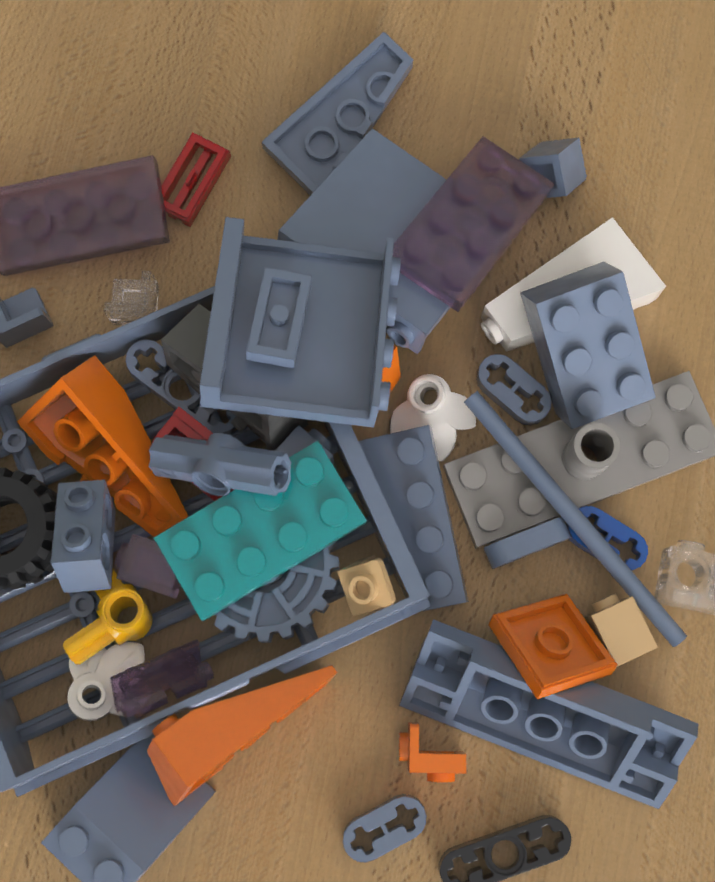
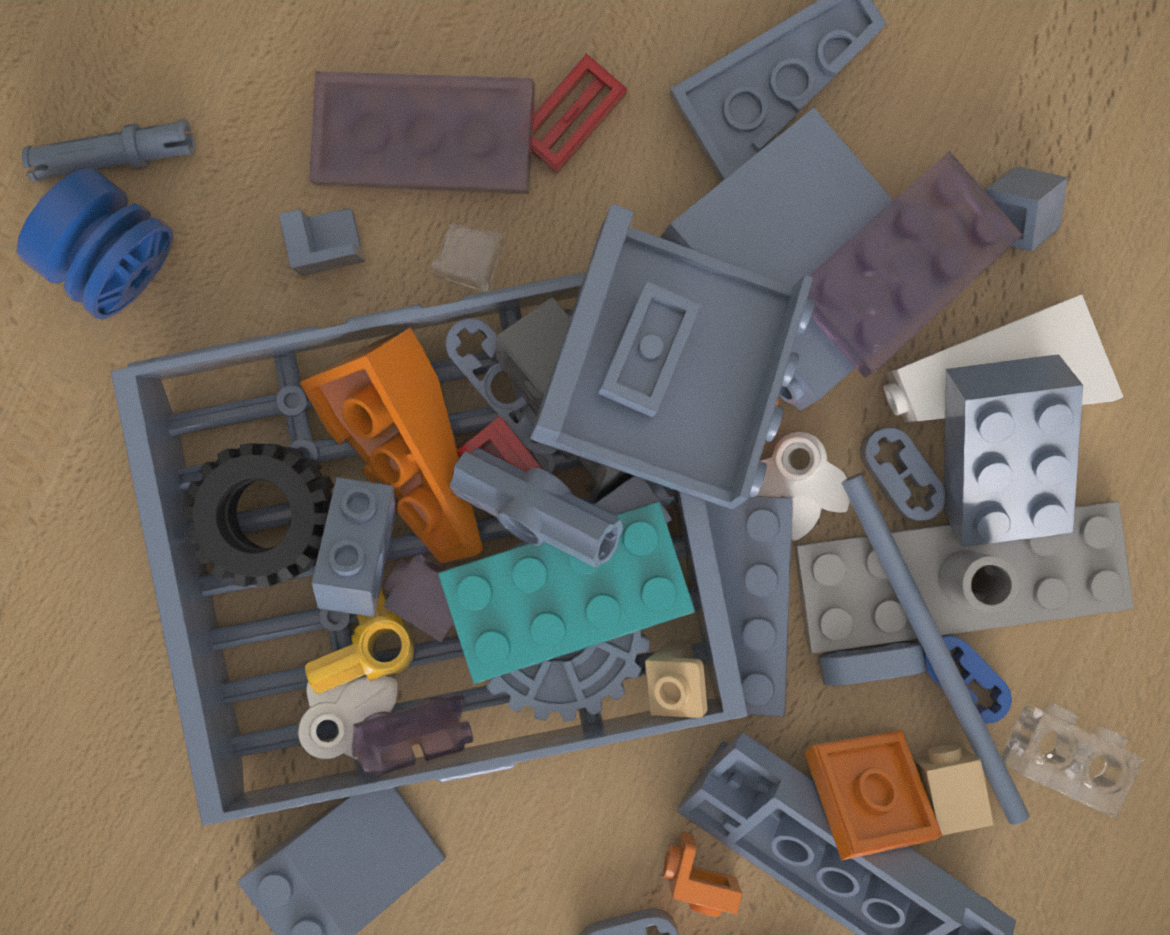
camera: 10 degrees right, 10 degrees up
(205, 739) = (449, 817): orange wedge -> none

